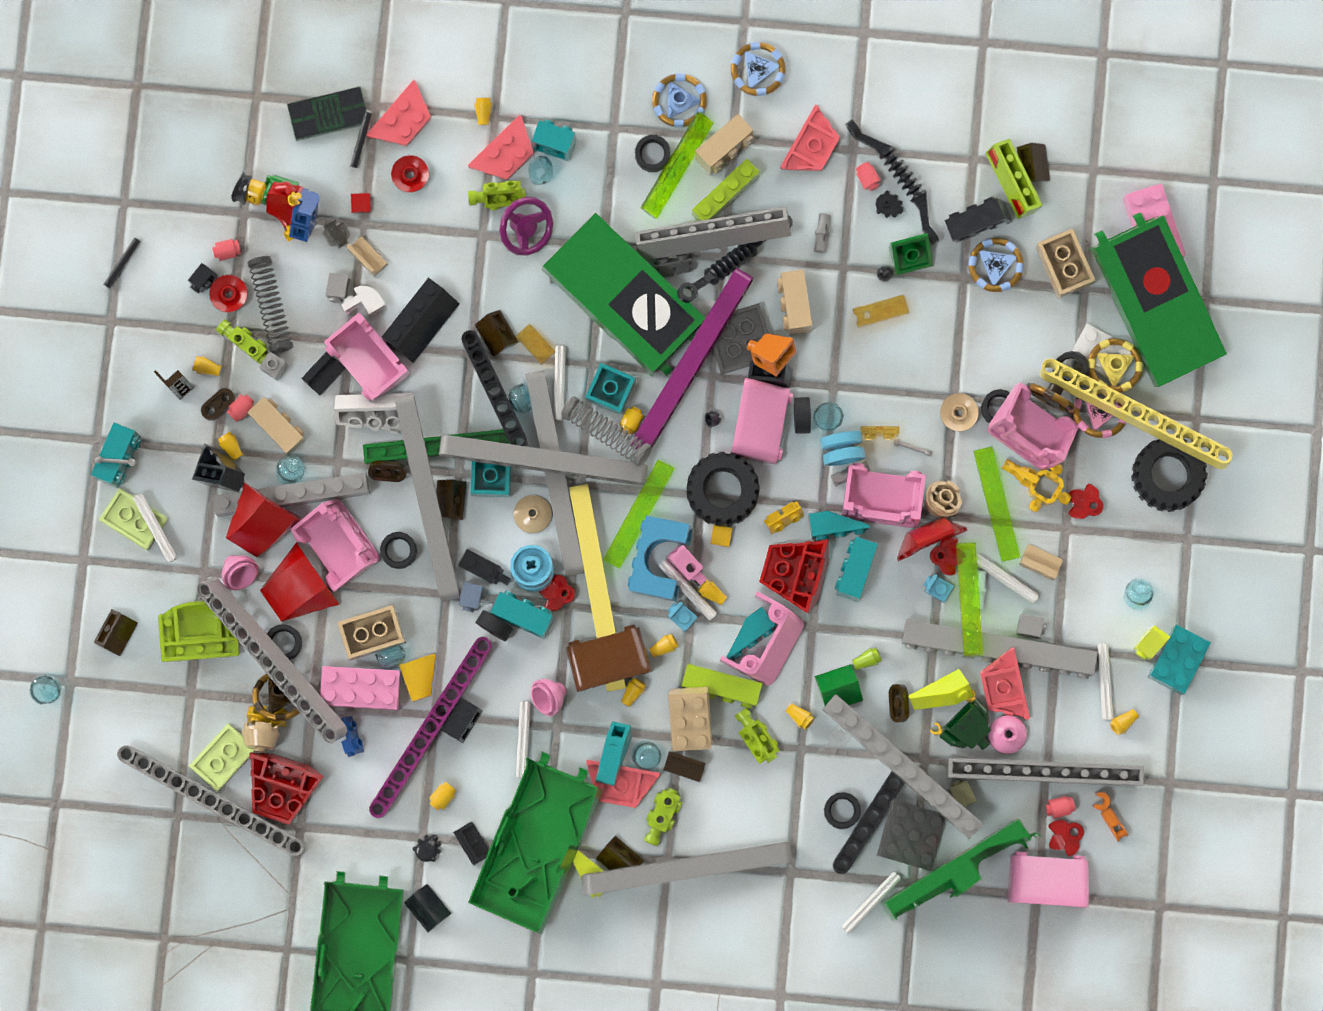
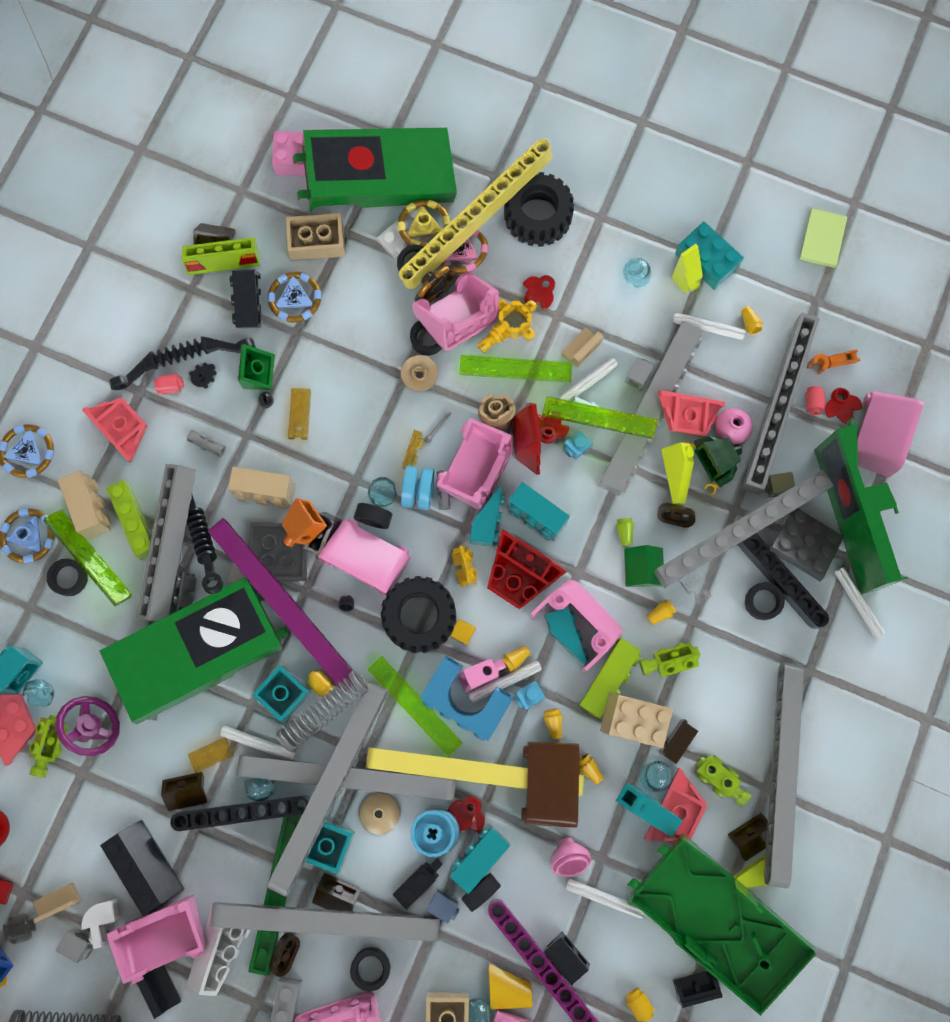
camera: 75 degrees left, 5 degrees down
(1240, 771) = (823, 238): none -> yellowish green tile

